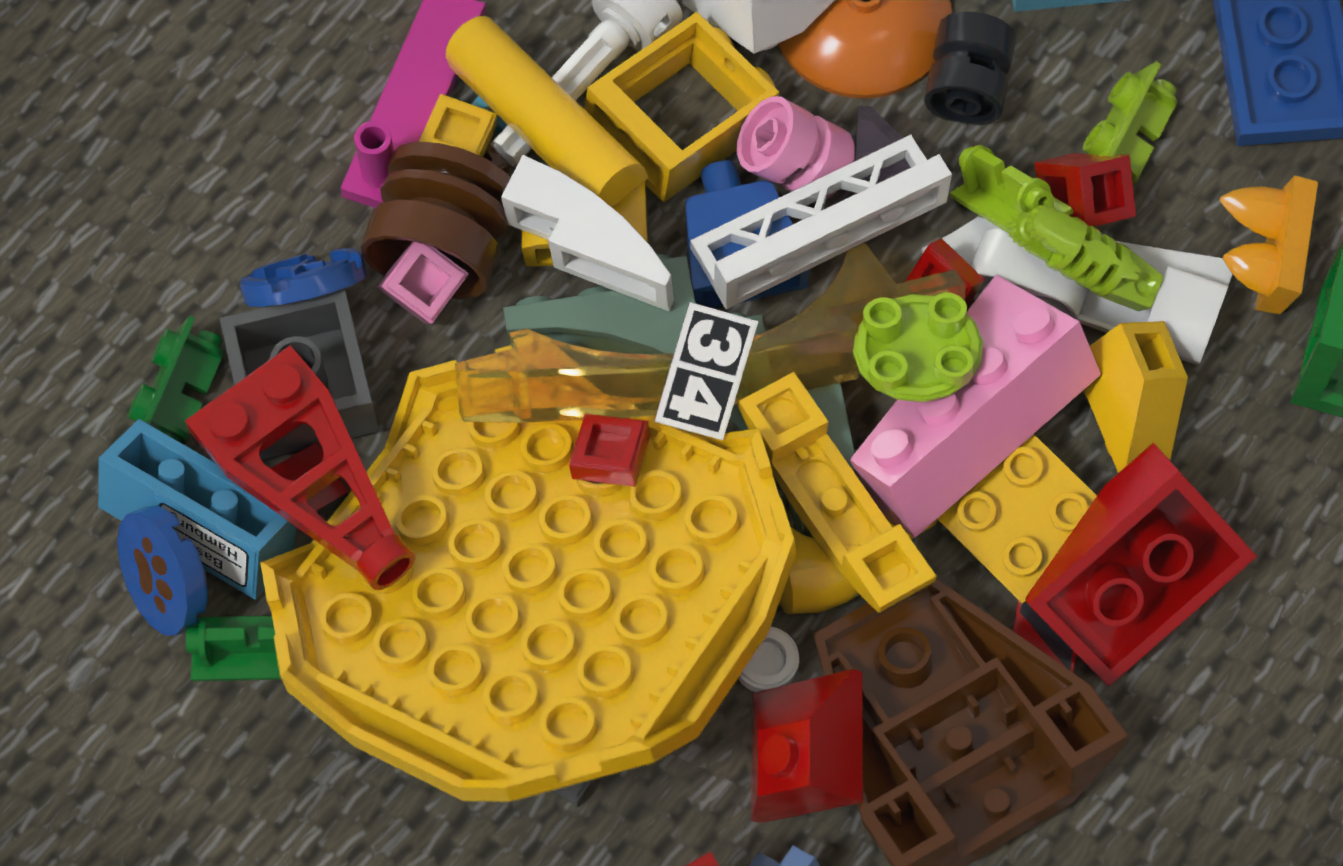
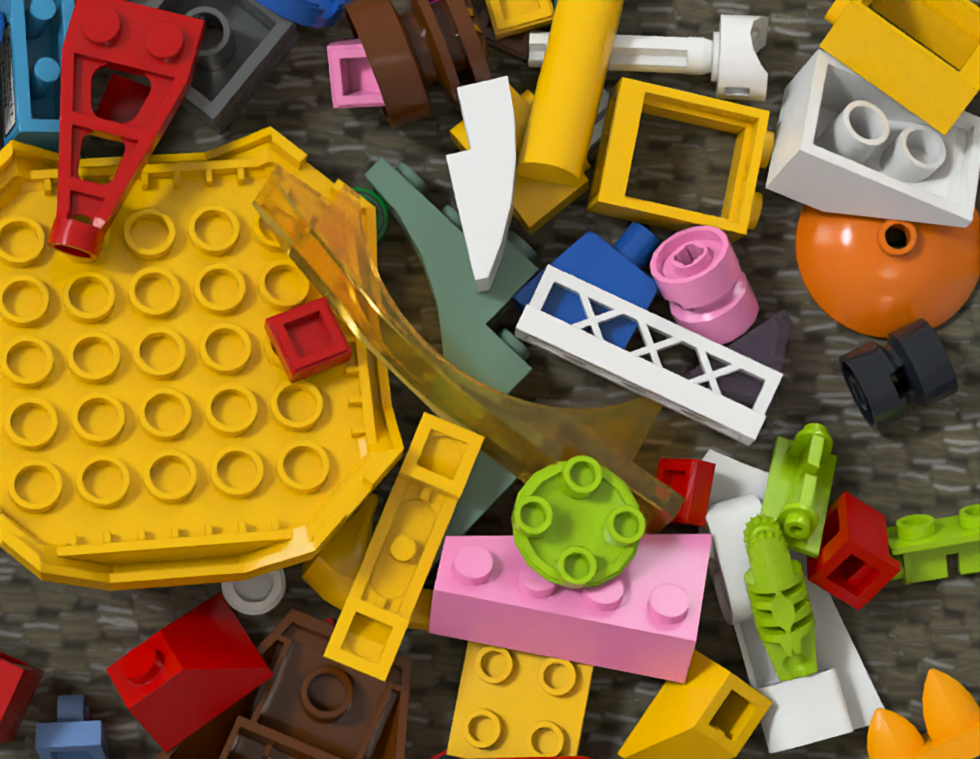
camera: 50 degrees right, 15 degrees up
(706, 371) = (421, 369): white sticker -> none

